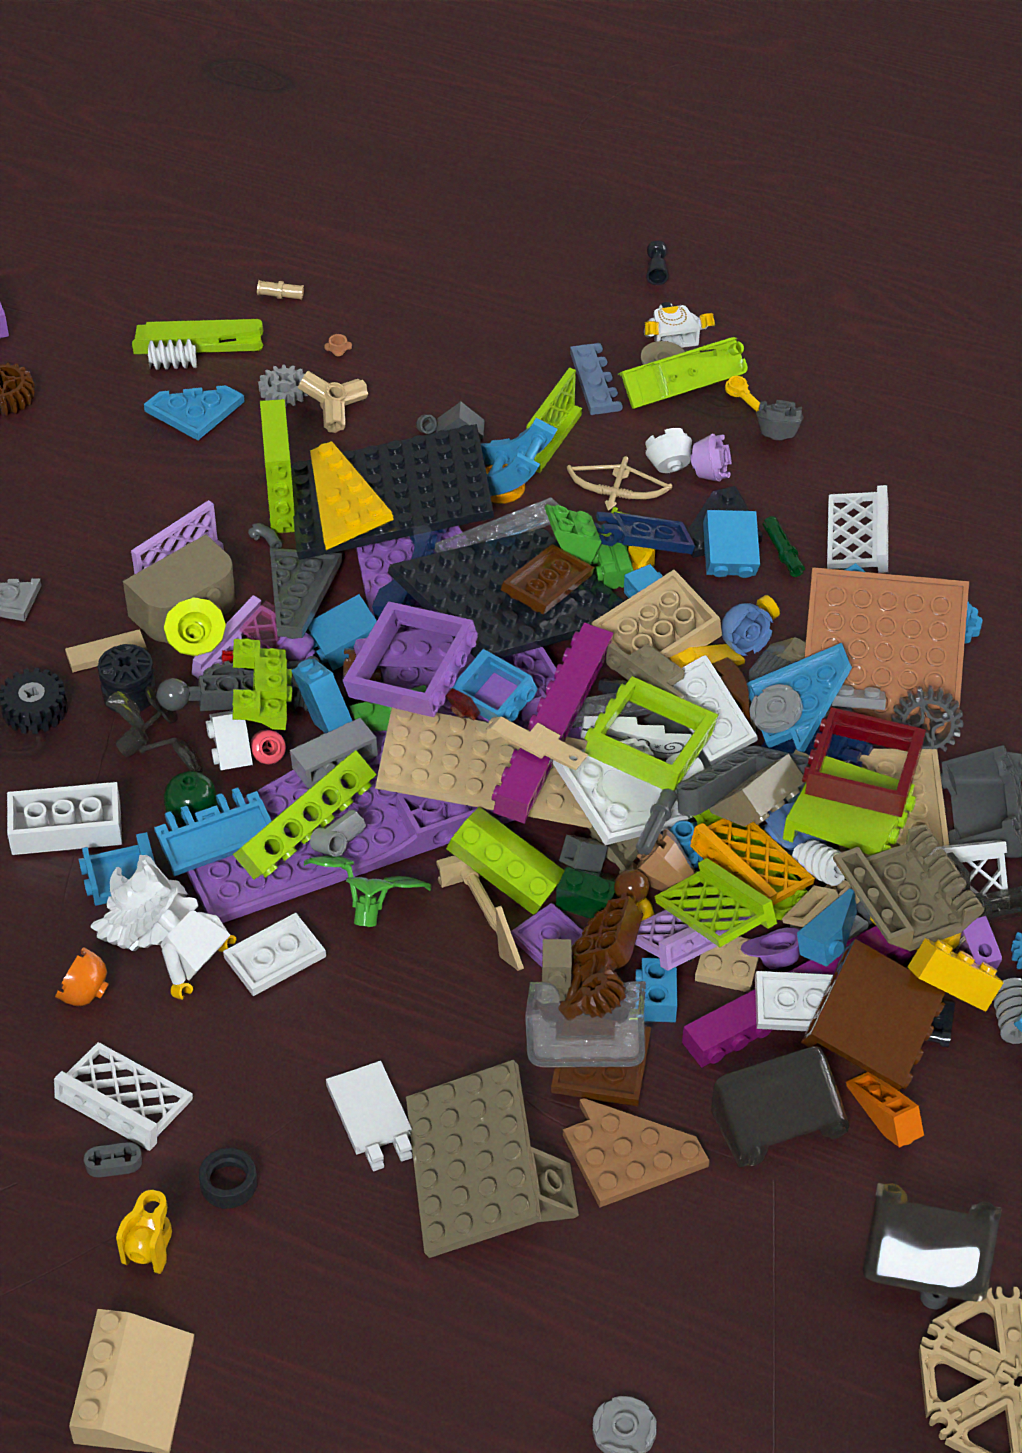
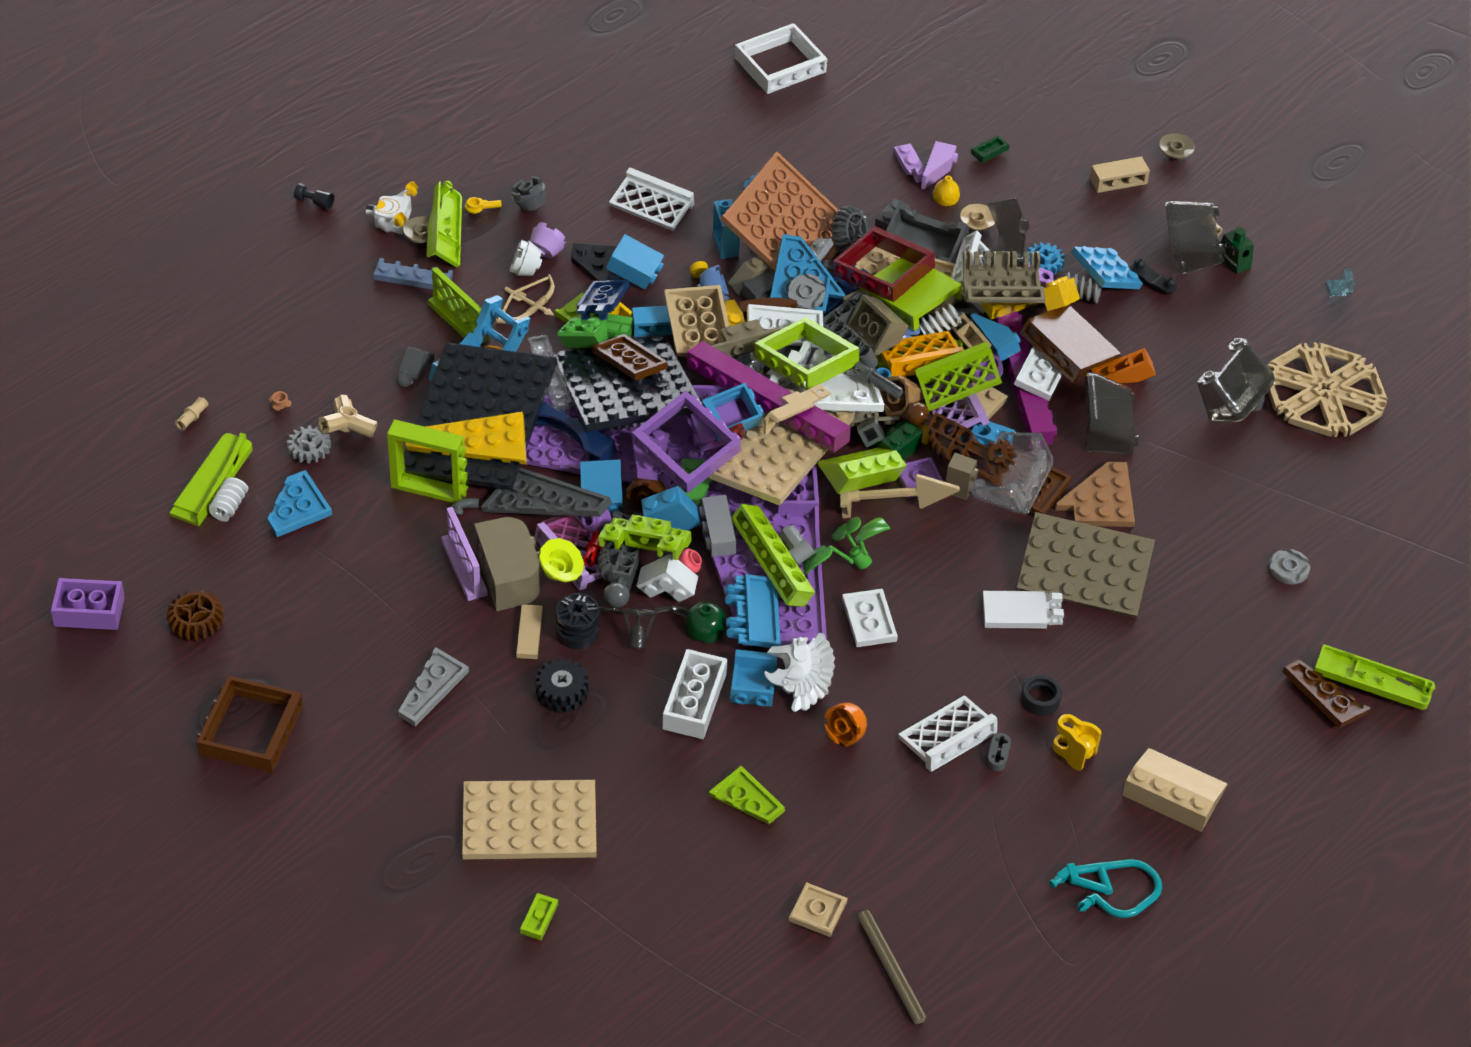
camera: 70 degrees left, 0 degrees up
(191, 945) = (859, 650): white torso -> none
(787, 553) = (652, 242): dark green pin -> none

